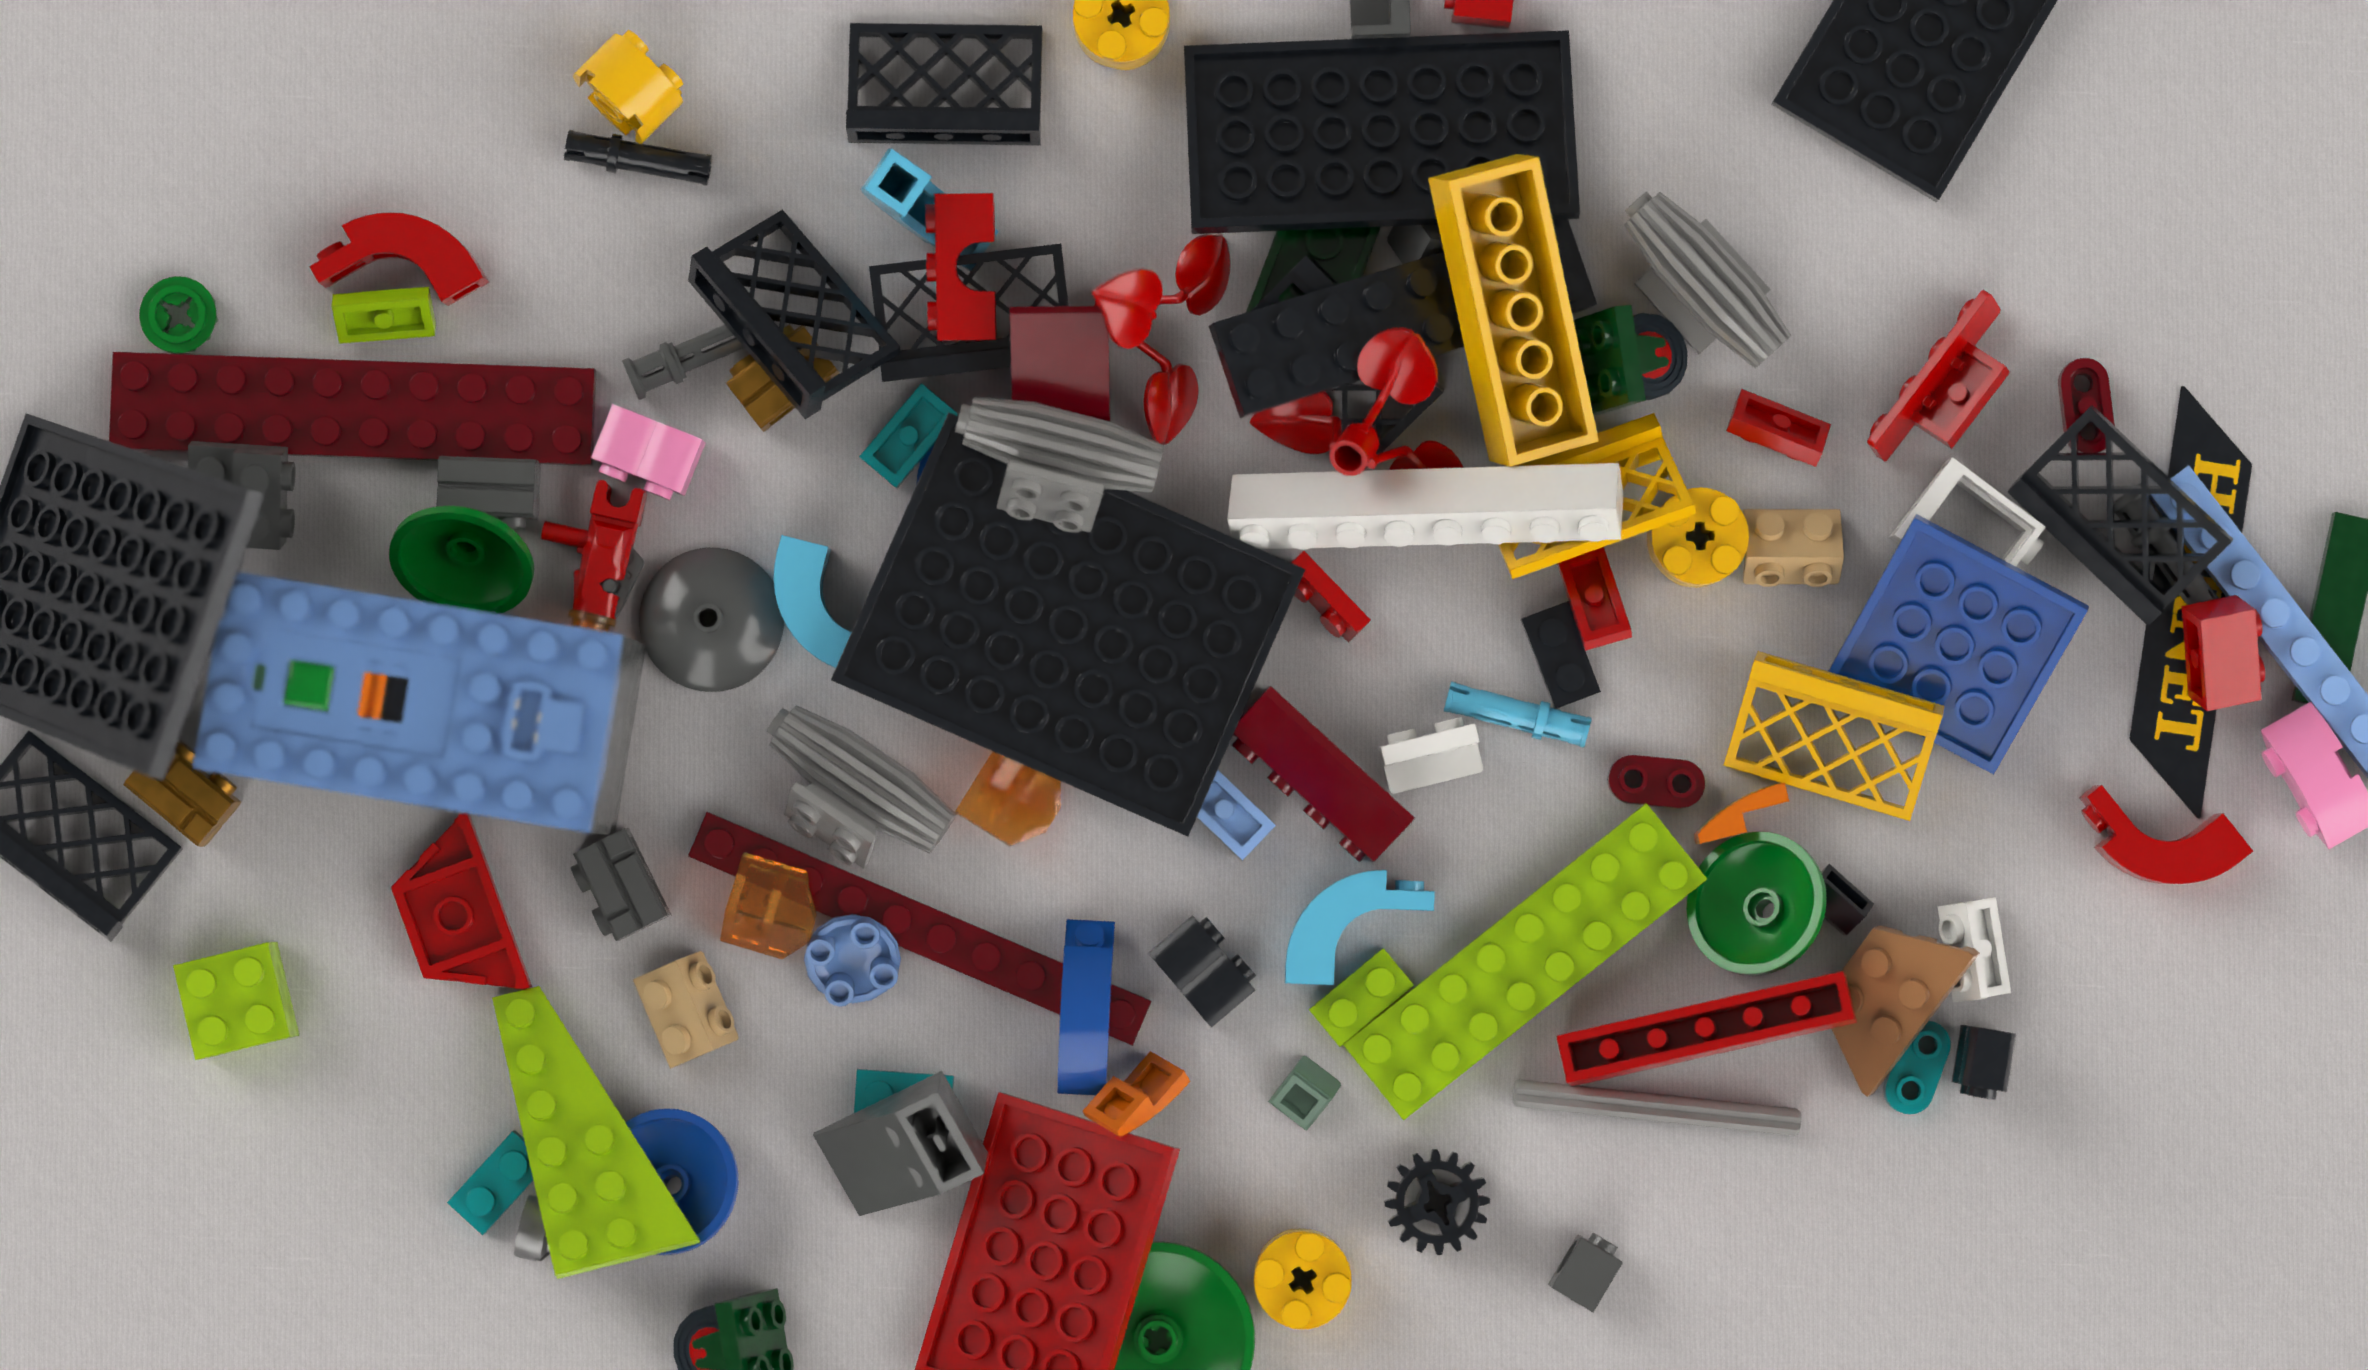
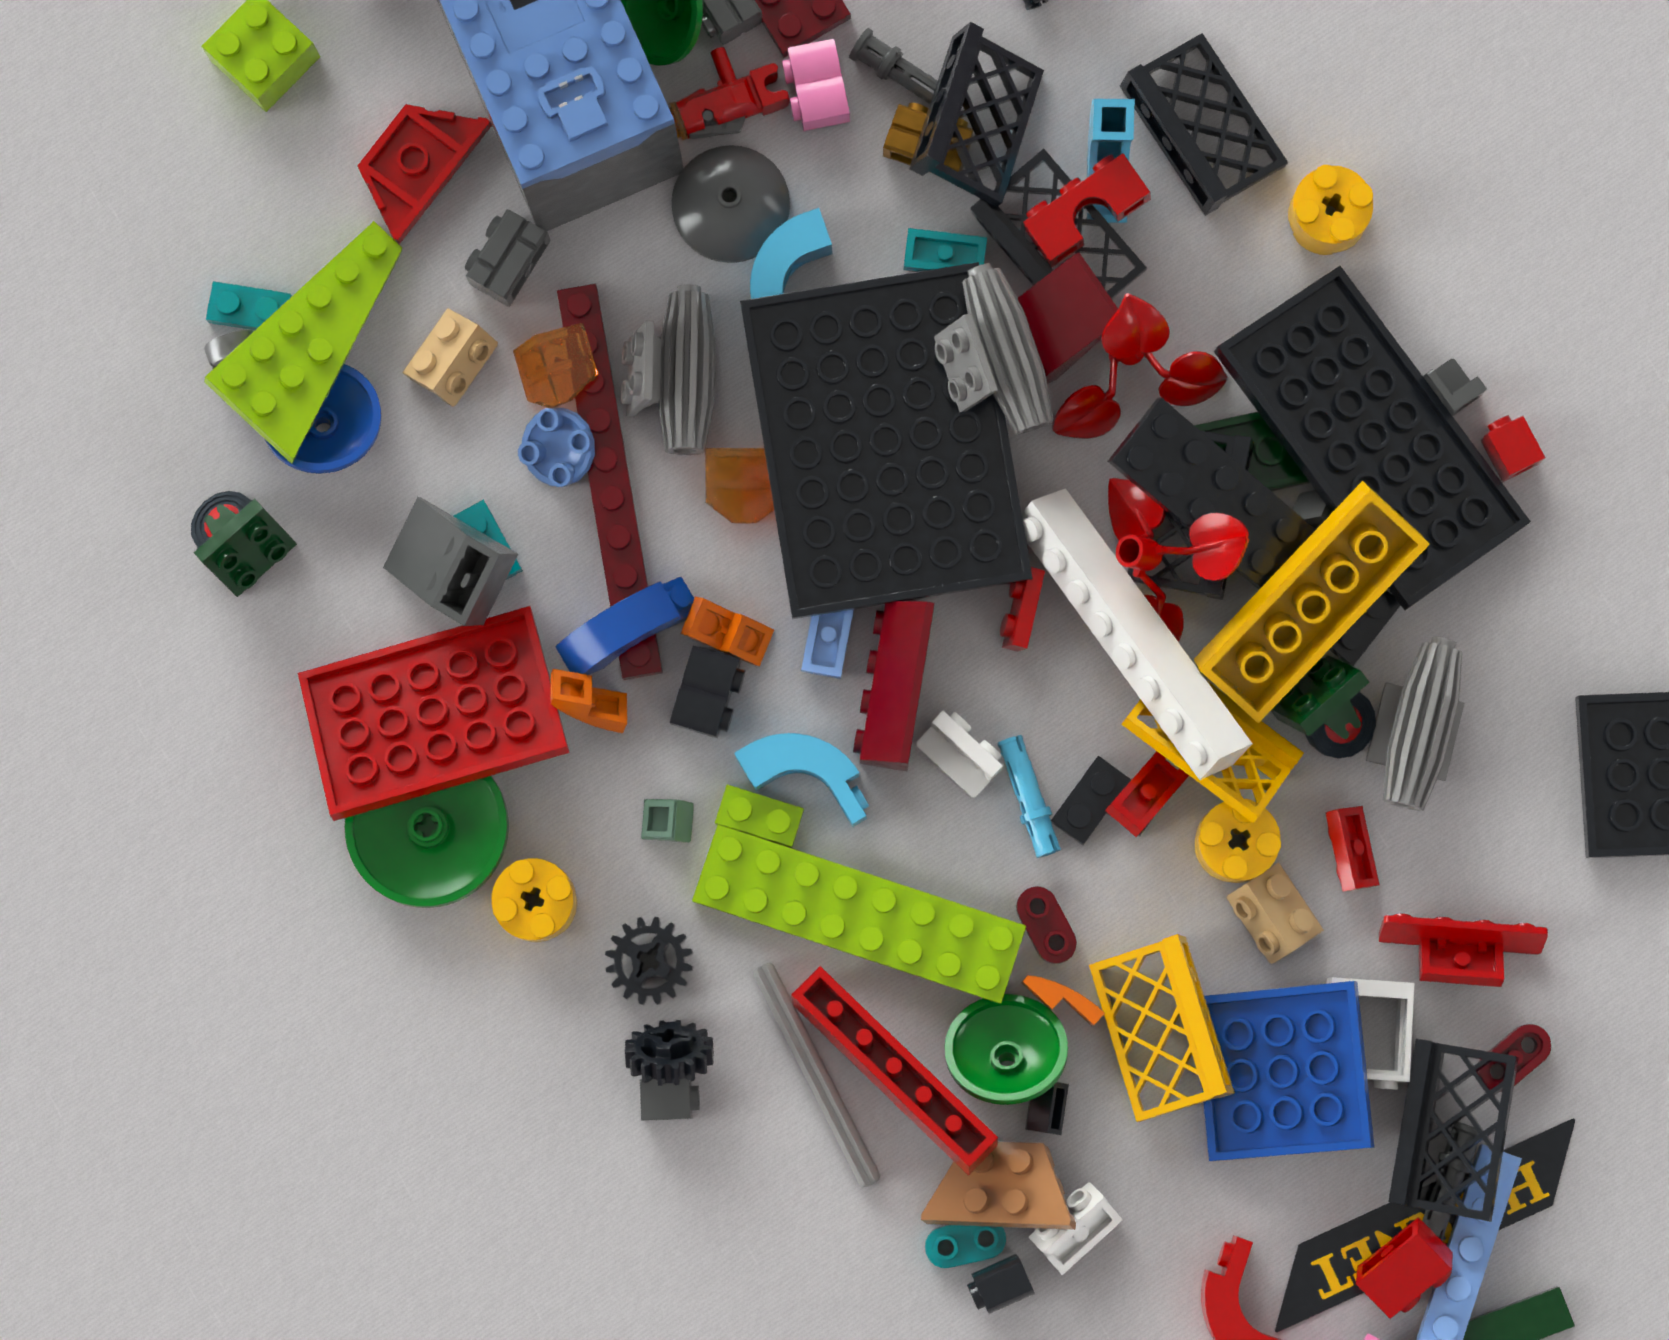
camera: 60 degrees right, 5 degrees down
(1154, 909) = (727, 631): none -> orange slope
(1543, 1241) = (669, 1052): none -> black gear

